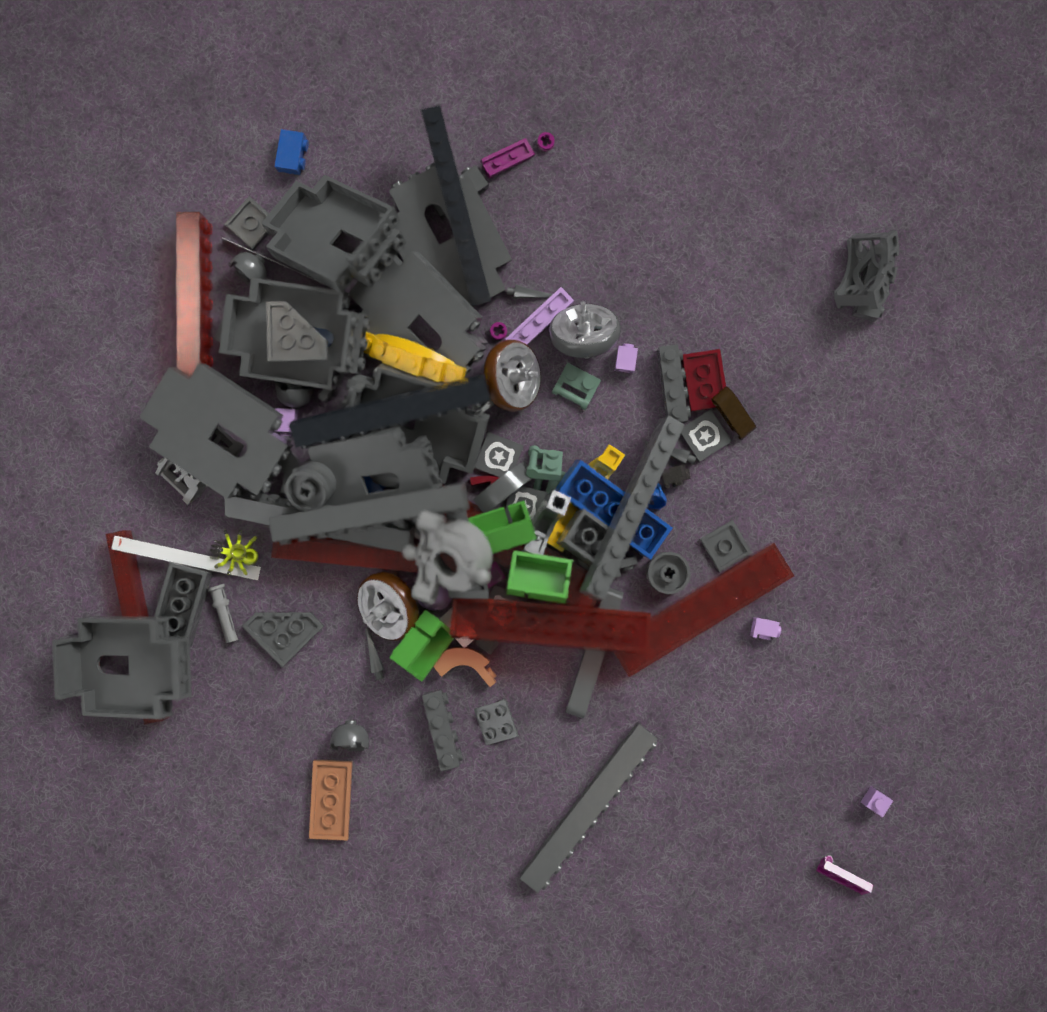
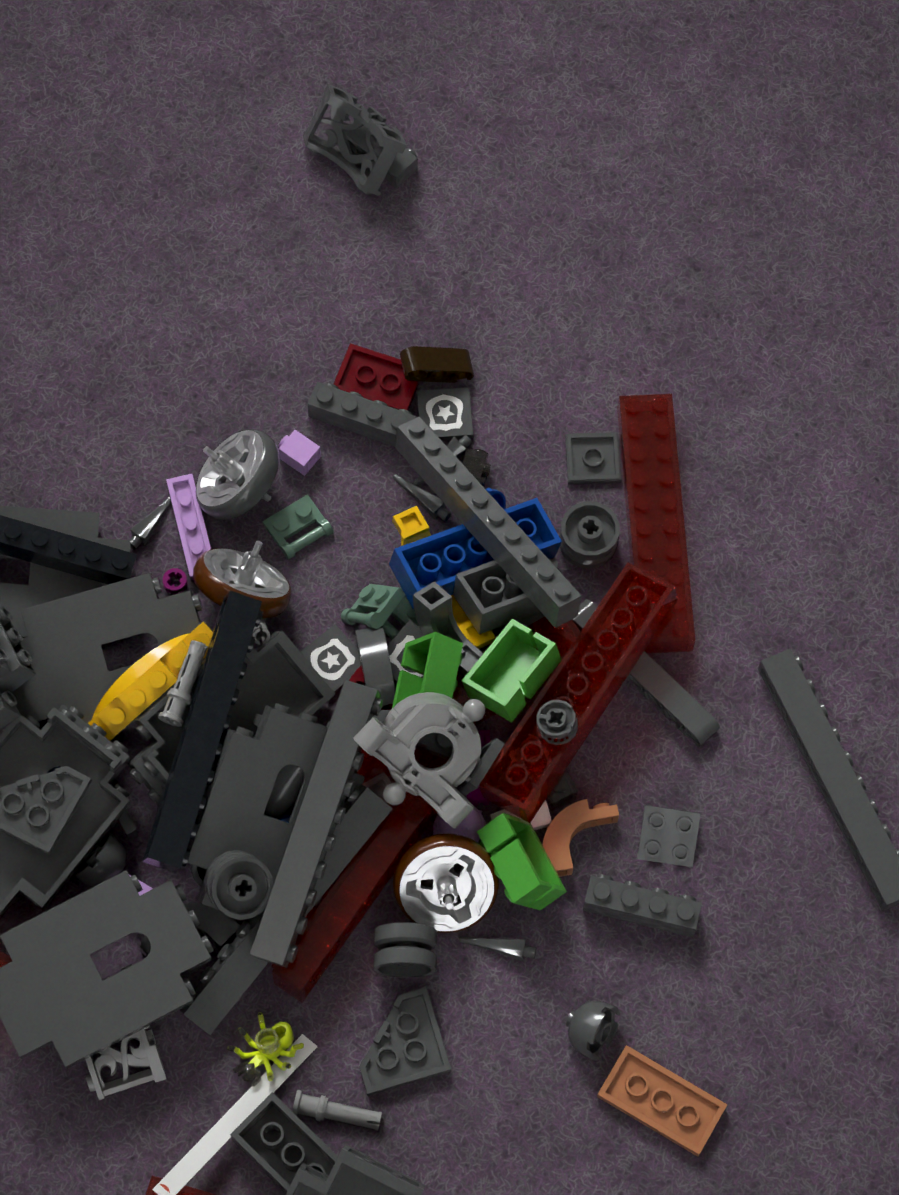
camera: 65 degrees left, 20 degrees down
(335, 603) = (405, 950): none -> dark grey wheel
(405, 383) = (179, 695): none -> light grey pin
(515, 626) = (556, 721): none -> dark grey wheel
(639, 451) = (429, 502): none -> dark grey piece
(765, 628) = (718, 462): lavender brick -> none

